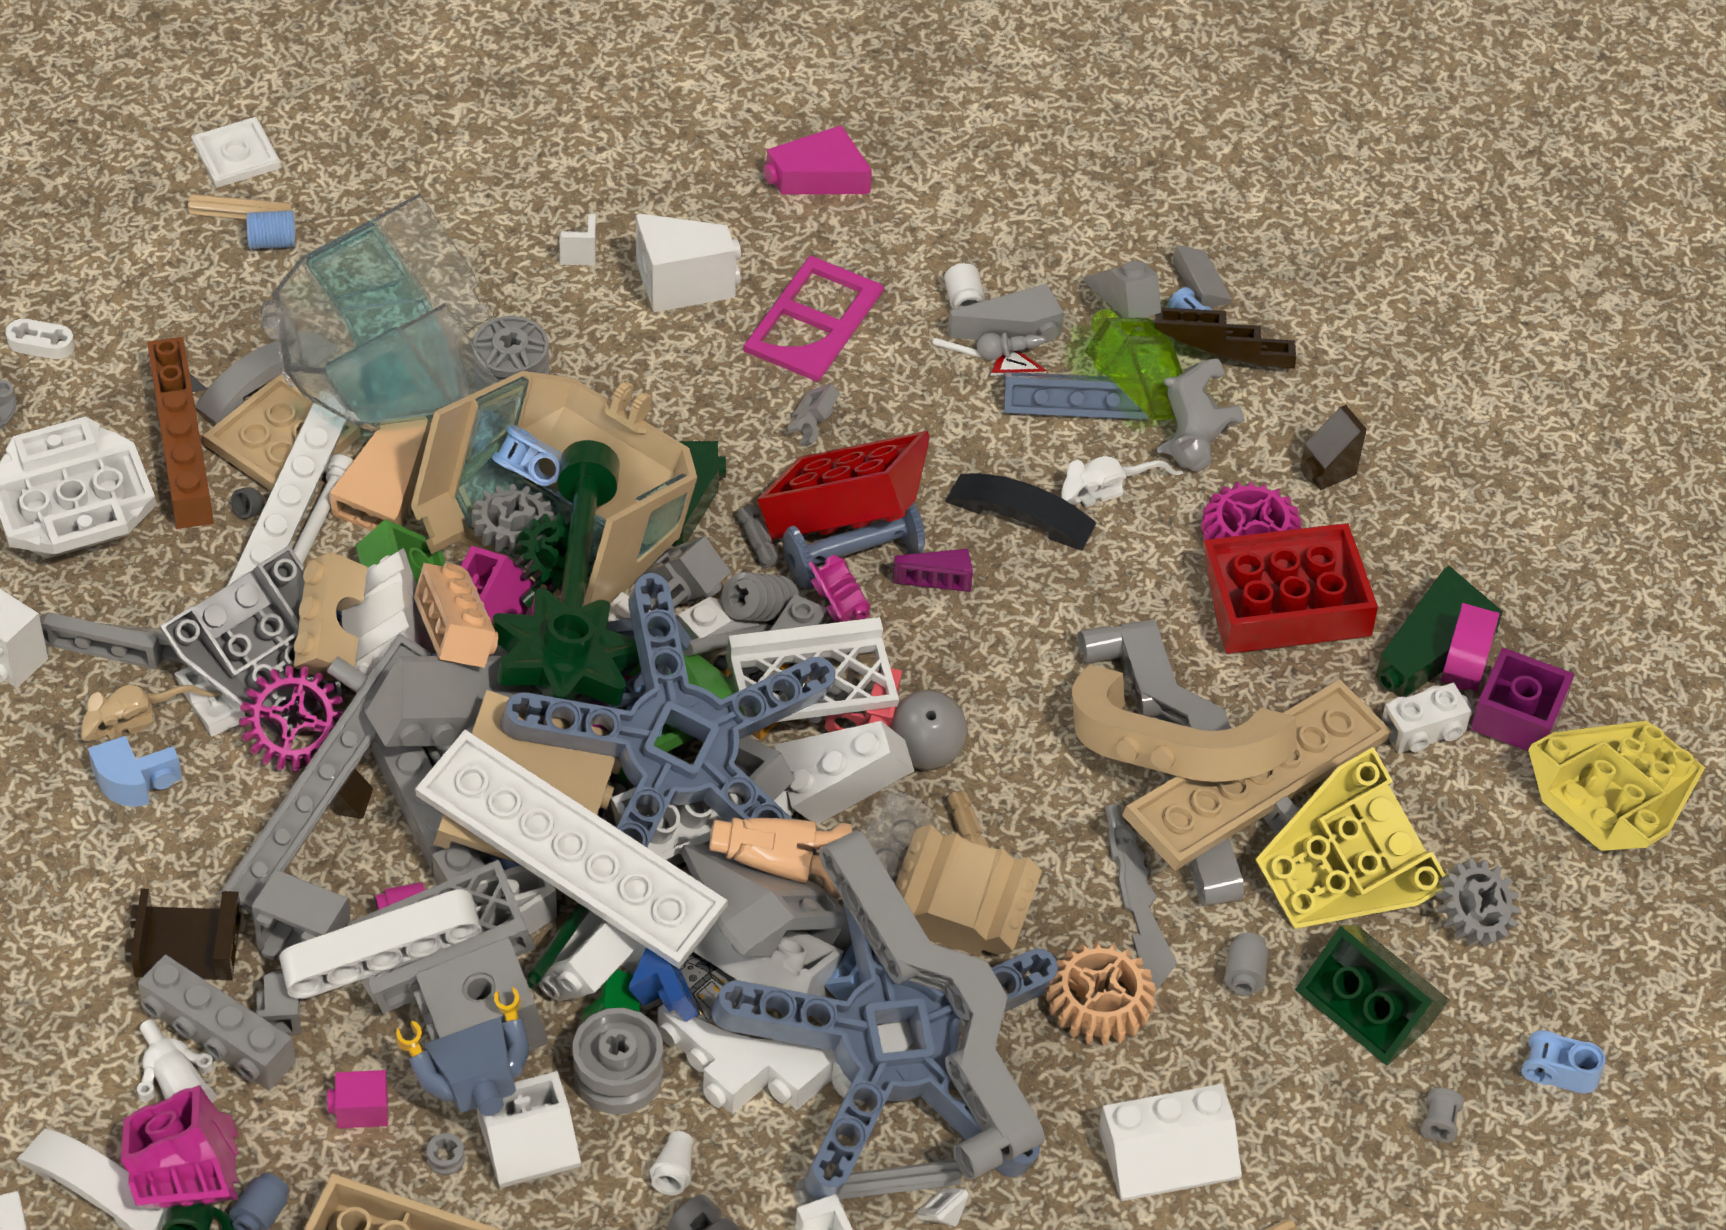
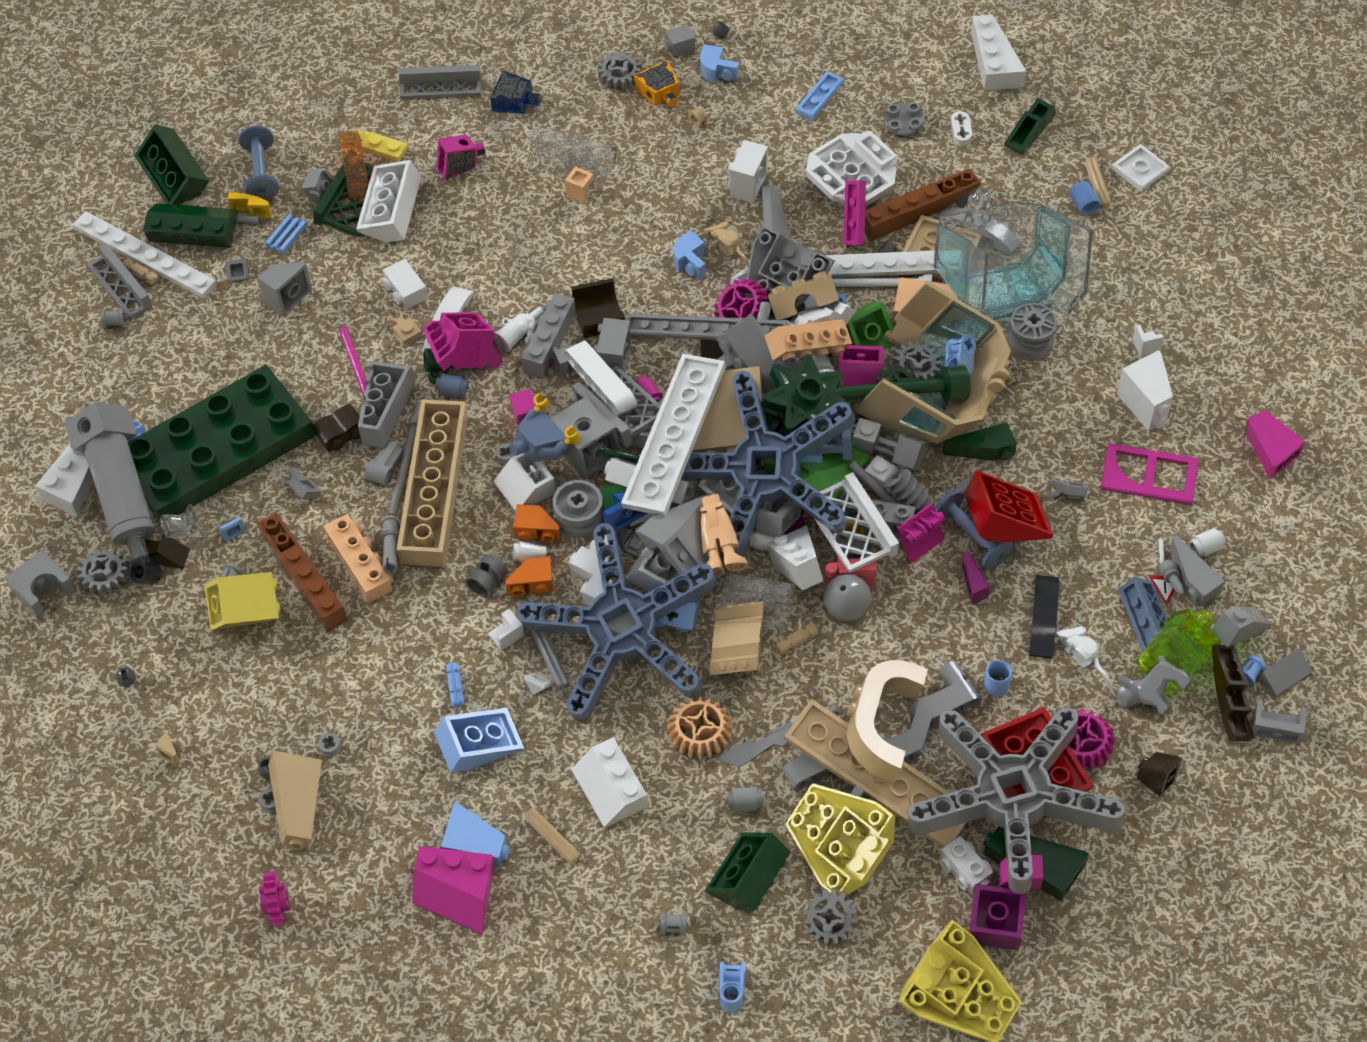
camera: 80 degrees right, 5 degrees up
(86, 250) = (1030, 126): none -> dark green slope
(172, 508) = (854, 212): none -> dark pink plate
(619, 1137) = (535, 524): none -> orange slope
(729, 1165) = (531, 577): none -> orange slope
(968, 984) = (651, 643): light grey beam -> none
(1124, 589) = (1001, 669): none -> light blue piece
(1284, 305) = (1278, 725): none -> light grey panel
(1355, 633) = (1017, 812): none -> light grey beam

